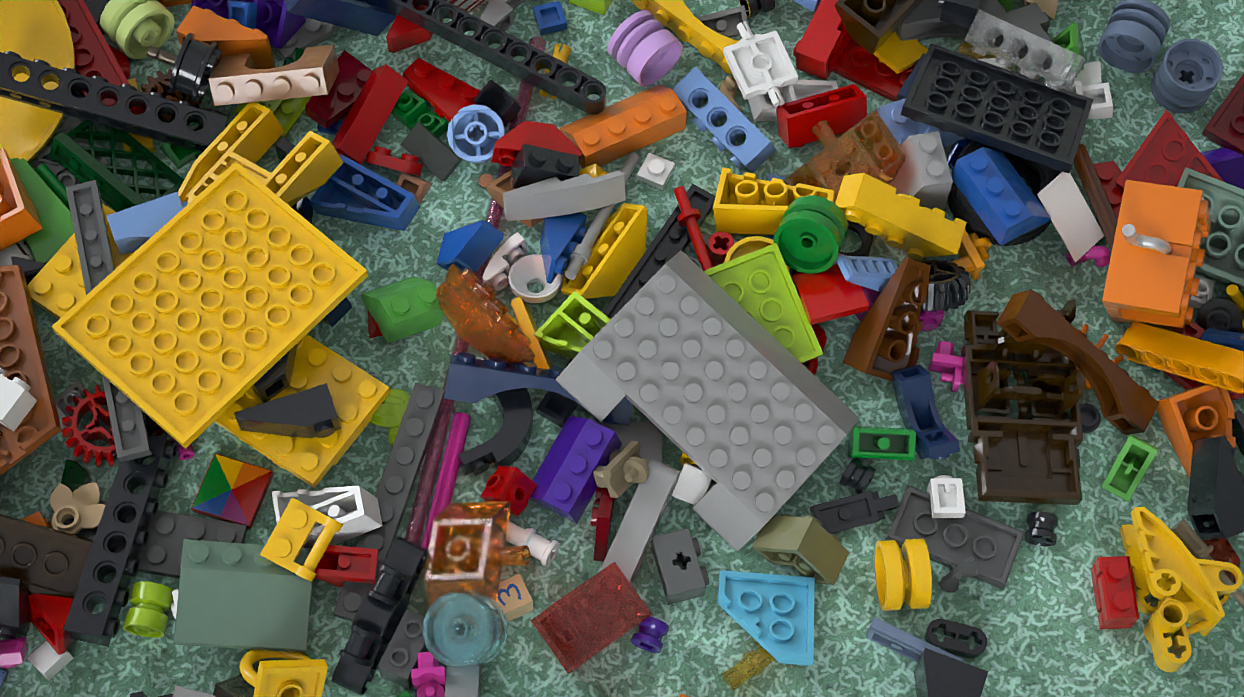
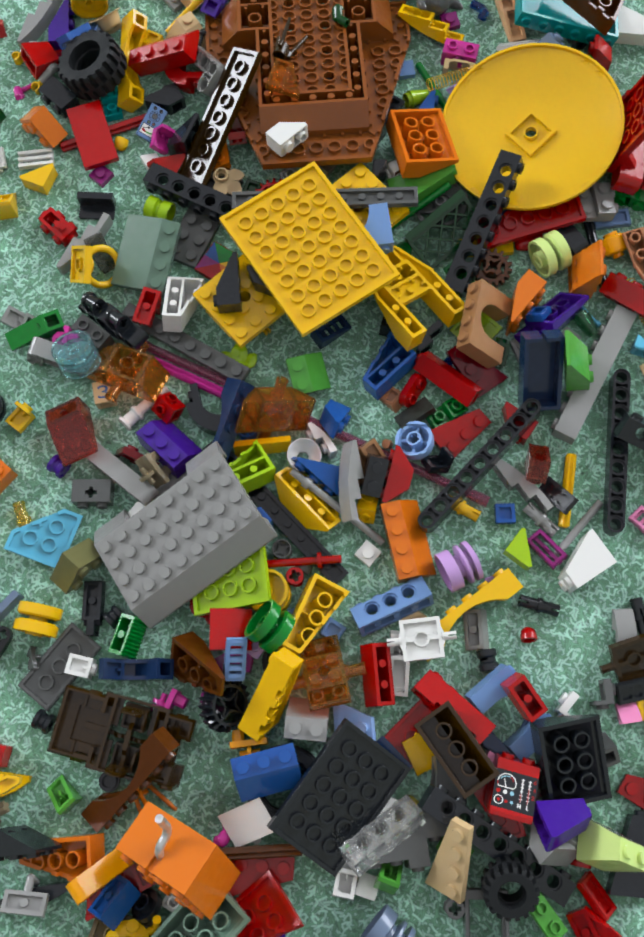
camera: 110 degrees right, 10 degrees up
(191, 66) = (499, 272): black wheel -> none
(292, 534) = (164, 277): yellow plate -> none

